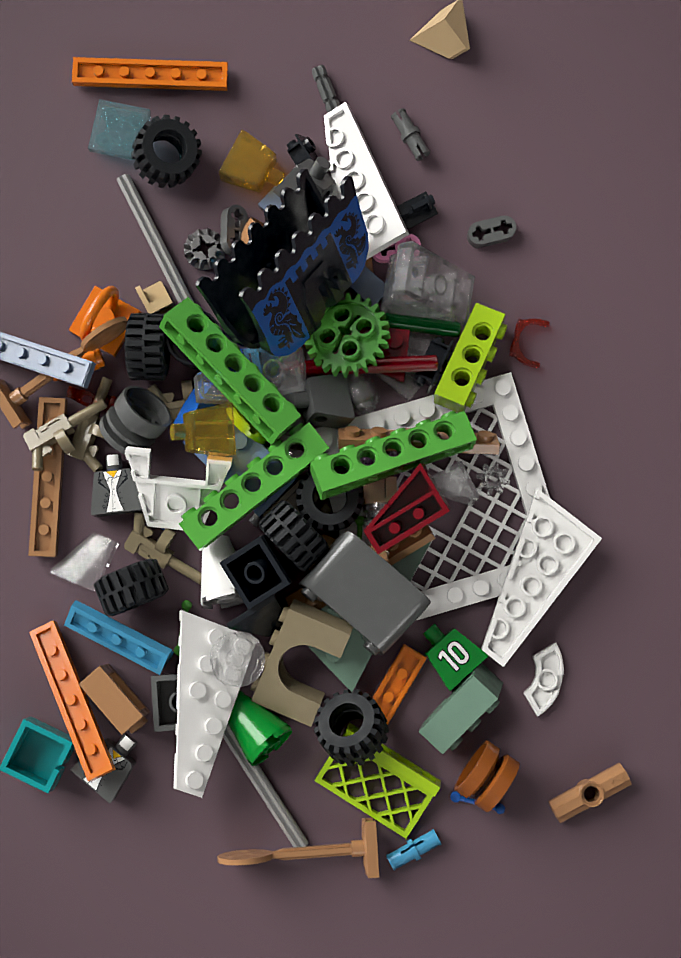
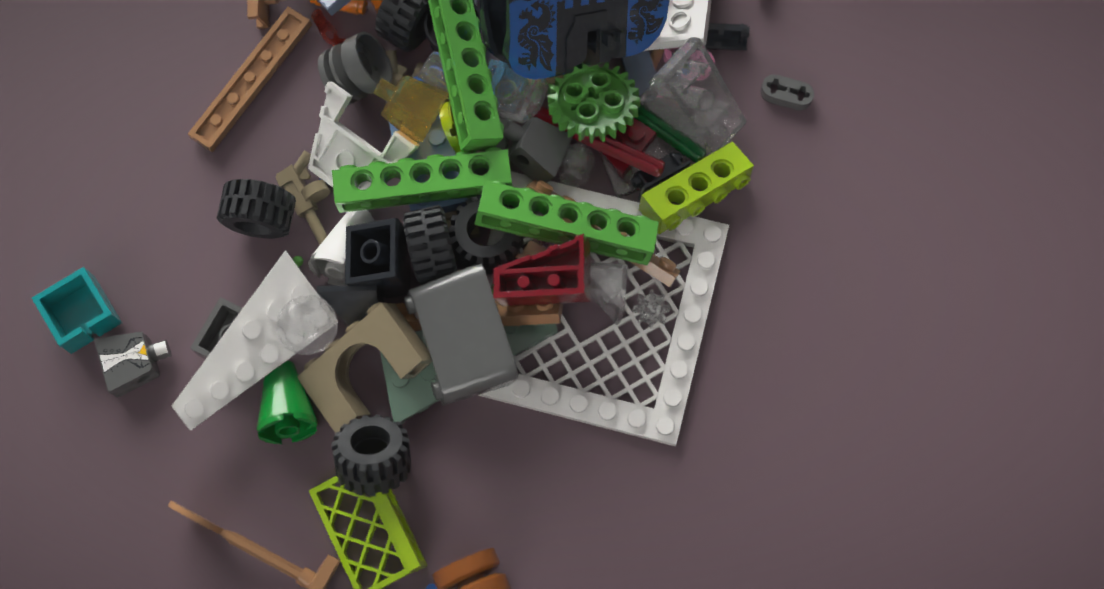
camera: 35 degrees right, 10 degrees down
(57, 431) = (282, 42): dark tan piece -> none
(72, 701) = (137, 281): orange plate -> none
(87, 561) = (236, 166): clear slope -> none
(88, 431) = (299, 69): dark tan piece -> none
(114, 490) = (297, 121): dark grey torso -> none
(115, 699) = (176, 300): medium nougat window -> none
(118, 637) = (216, 248): dark azure fence -> none
(267, 793) = (258, 473): light grey axle -> none
(398, 680) = (445, 446): orange tile -> none
(452, 655) = (511, 450): green torso -> none
(462, 709) = (489, 504): sand green wedge -> none
(515, 349) = (765, 189): clear red cap -> none
(543, 563) = (650, 413): white wing -> none
(547, 679) = (590, 531): white tile -> none

